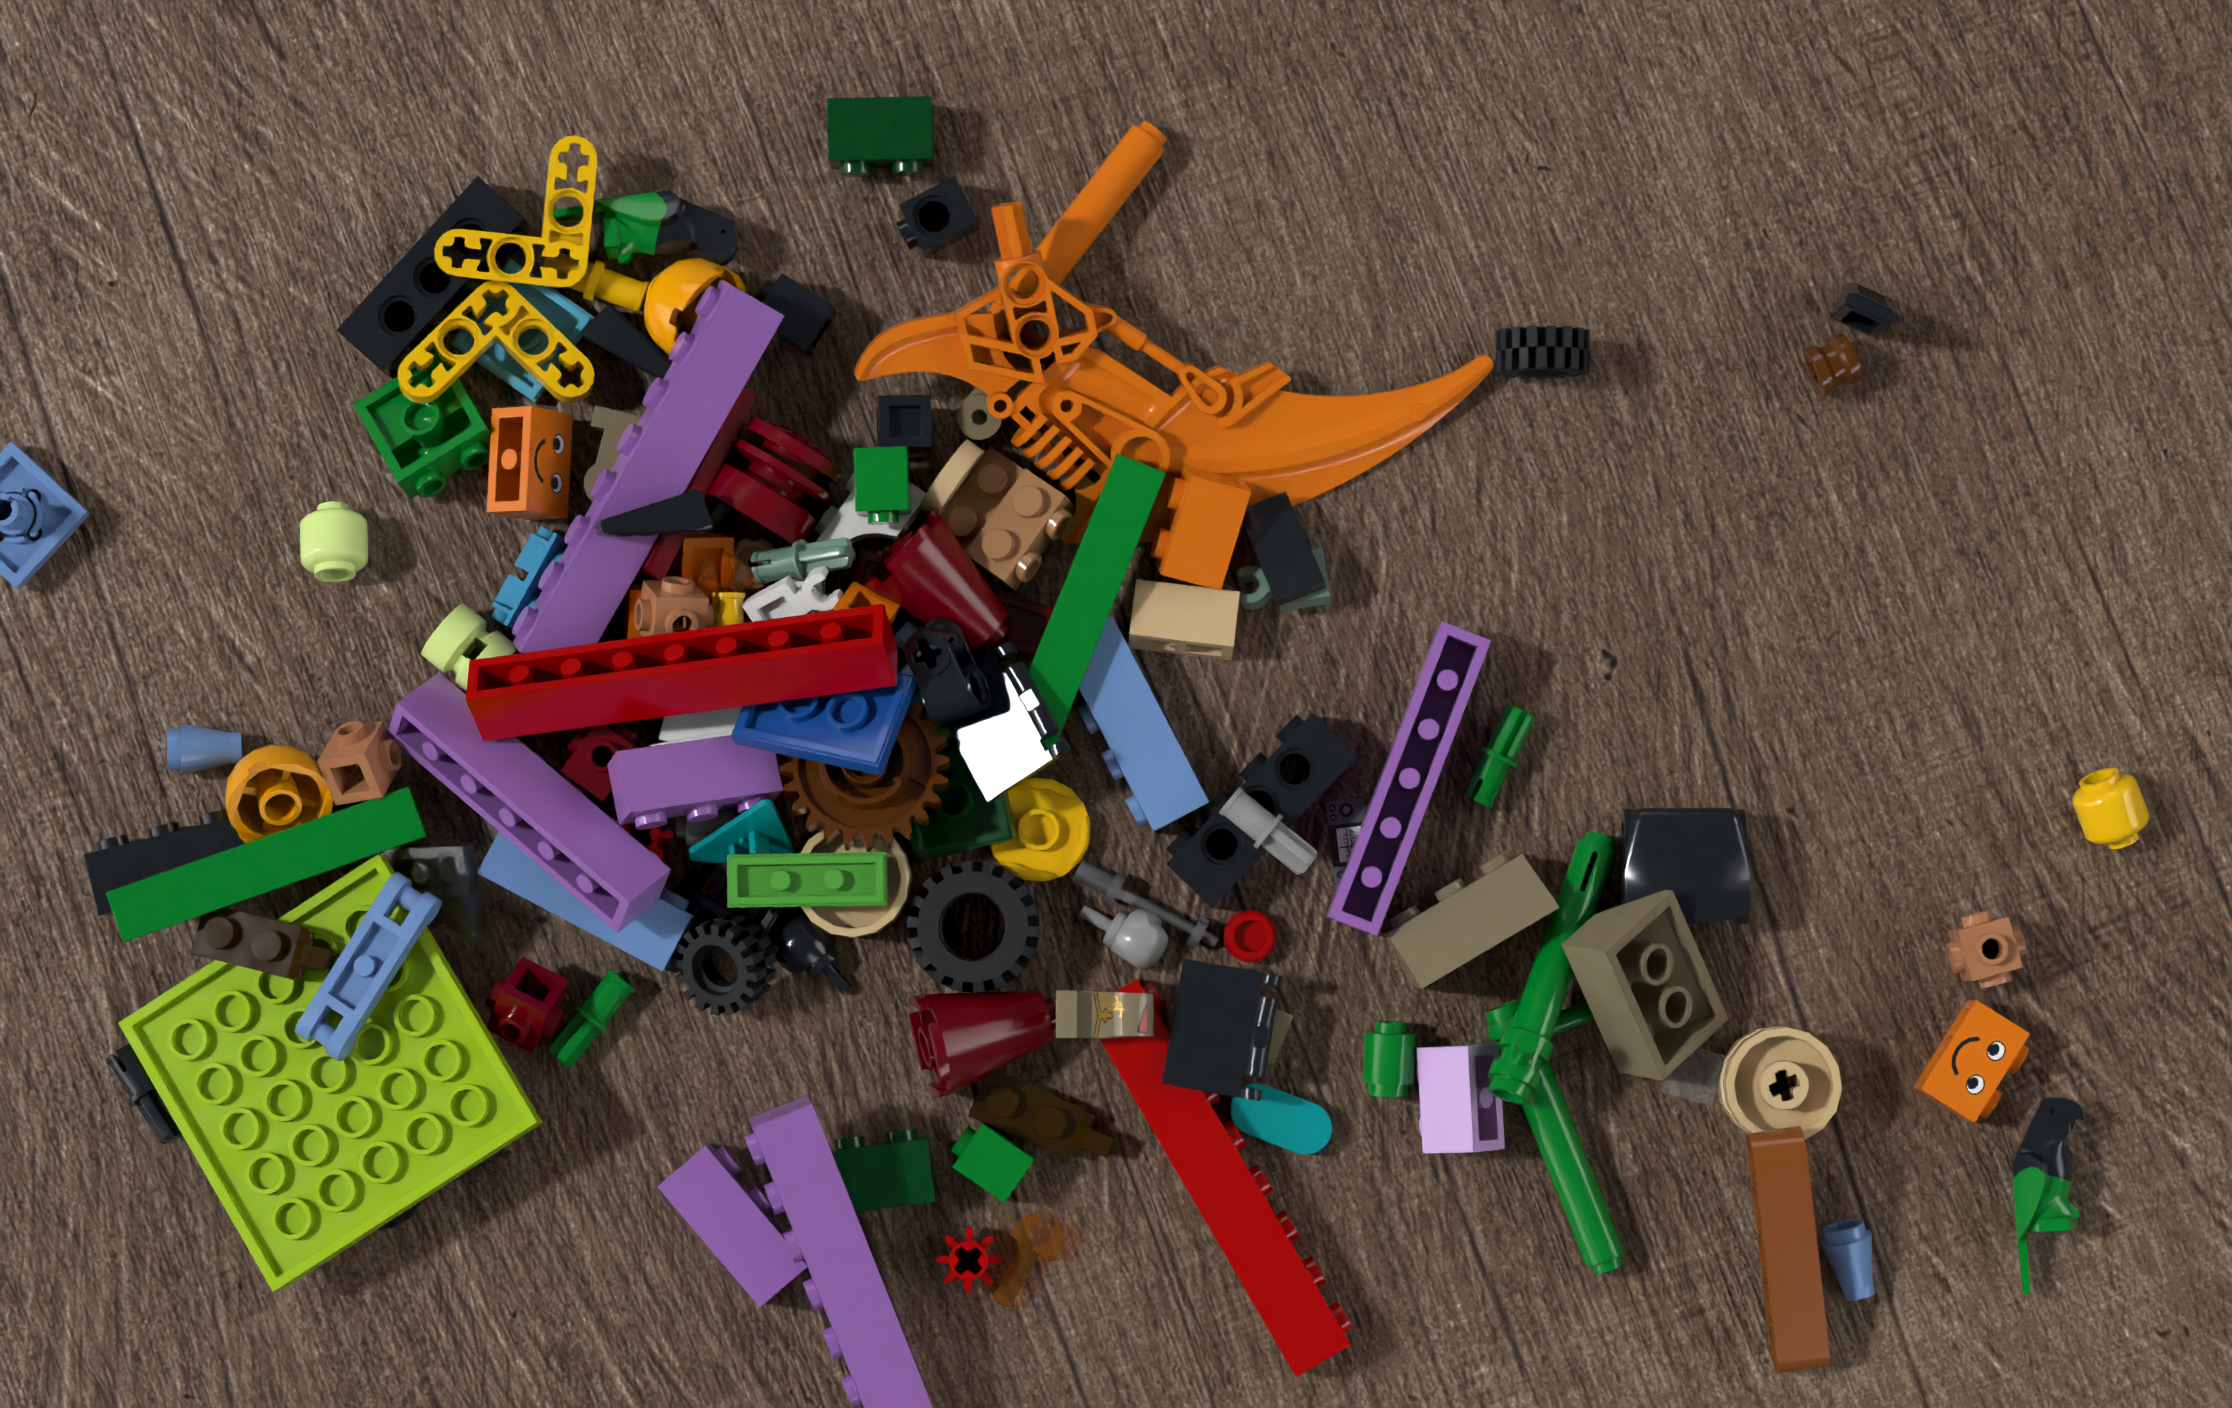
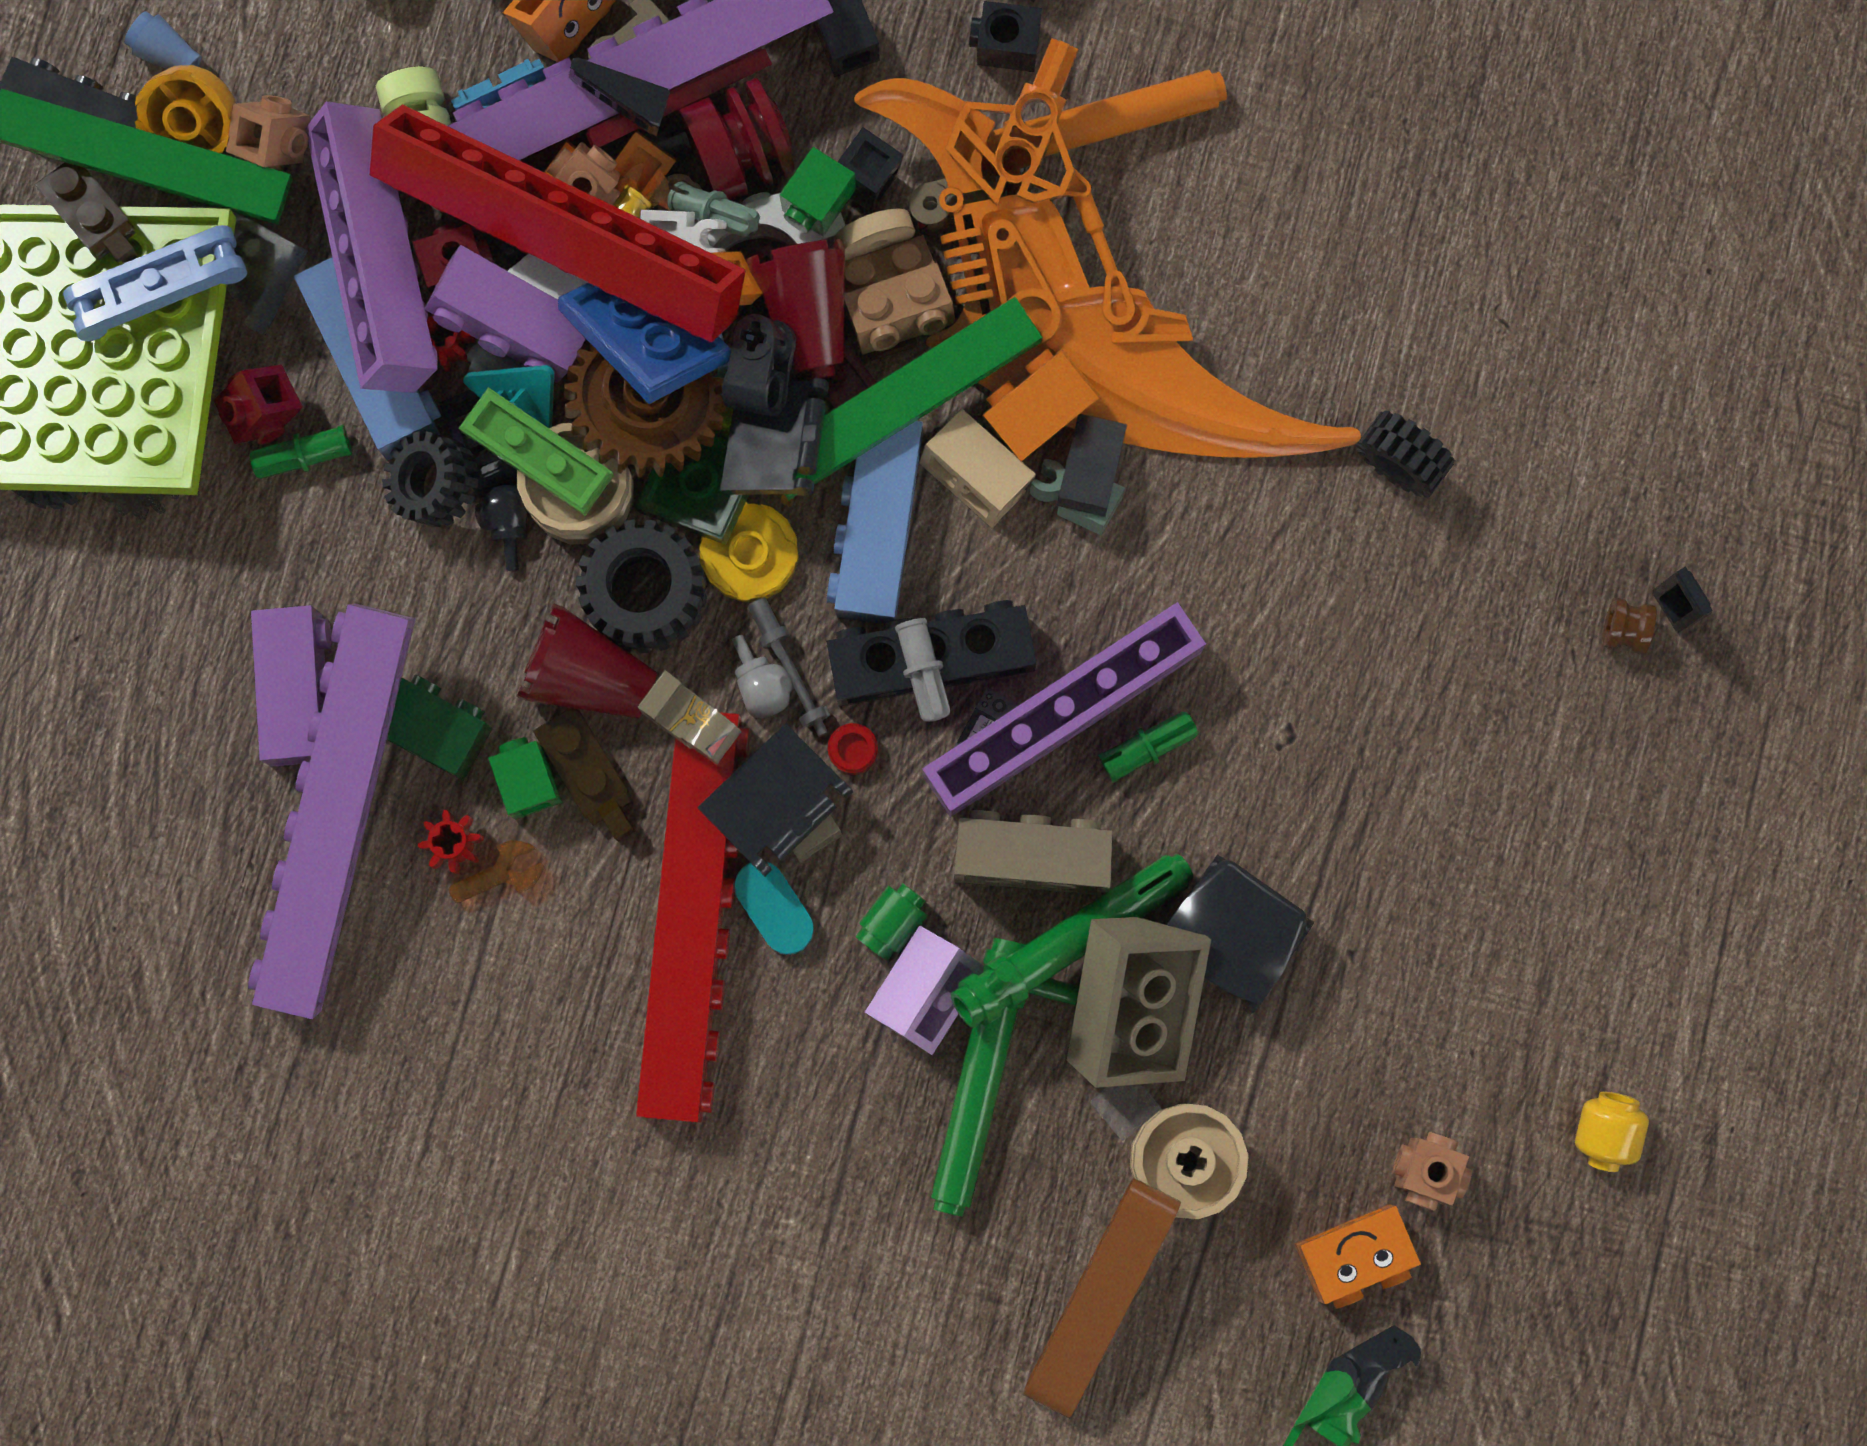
camera: 35 degrees right, 5 degrees down
(1850, 1256) = (1148, 1342): medium blue cone -> none

